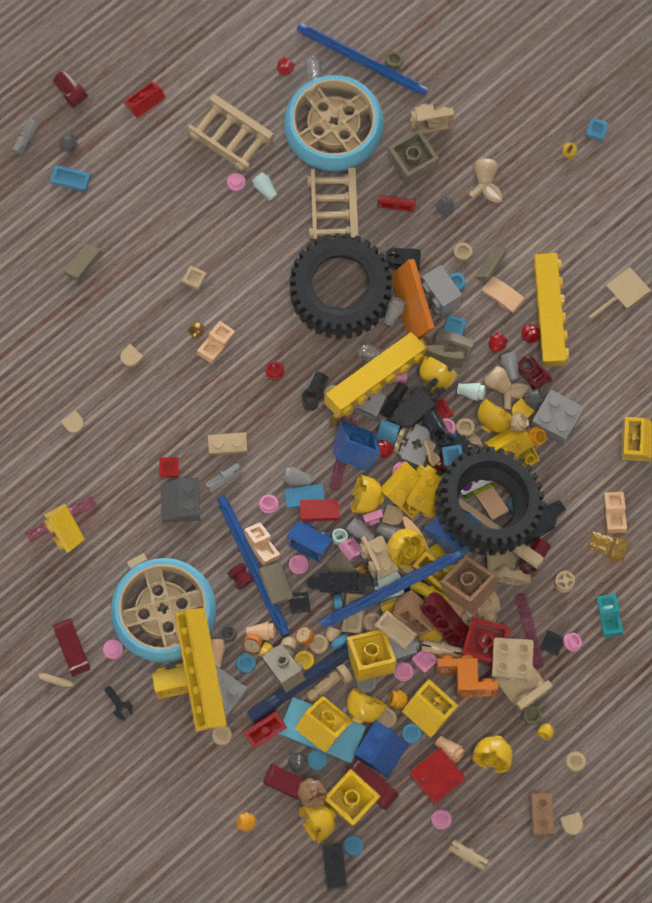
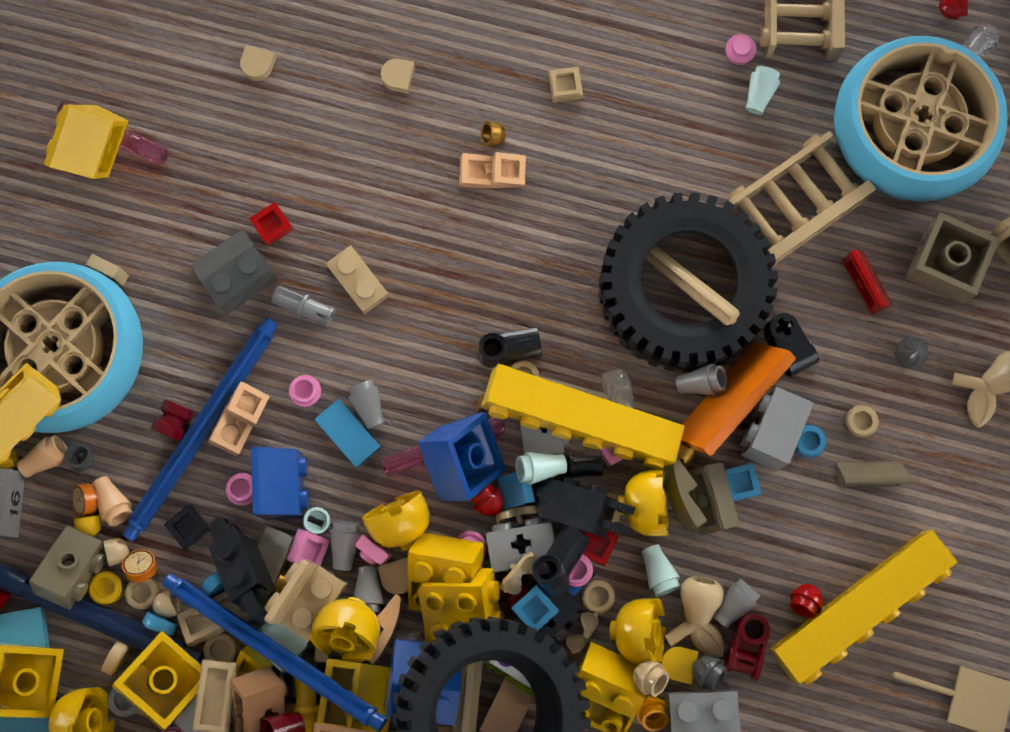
camera: 60 degrees right, 5 degrees up
(246, 663) = (54, 509): dark azure tile -> none
(274, 370) = (504, 274): red plate -> none
(275, 583) = (189, 475): dark tan slope -> none
(319, 510) = (335, 467): red slope -> none
(323, 686) = (82, 639): tan axle -> none
(346, 283) = (692, 286): none -> tan axle
(385, 412) = (539, 466): none -> light aqua cone
(497, 342) = (758, 561): red plate -> none
(503, 294) = (837, 522): light nougat slope -> none

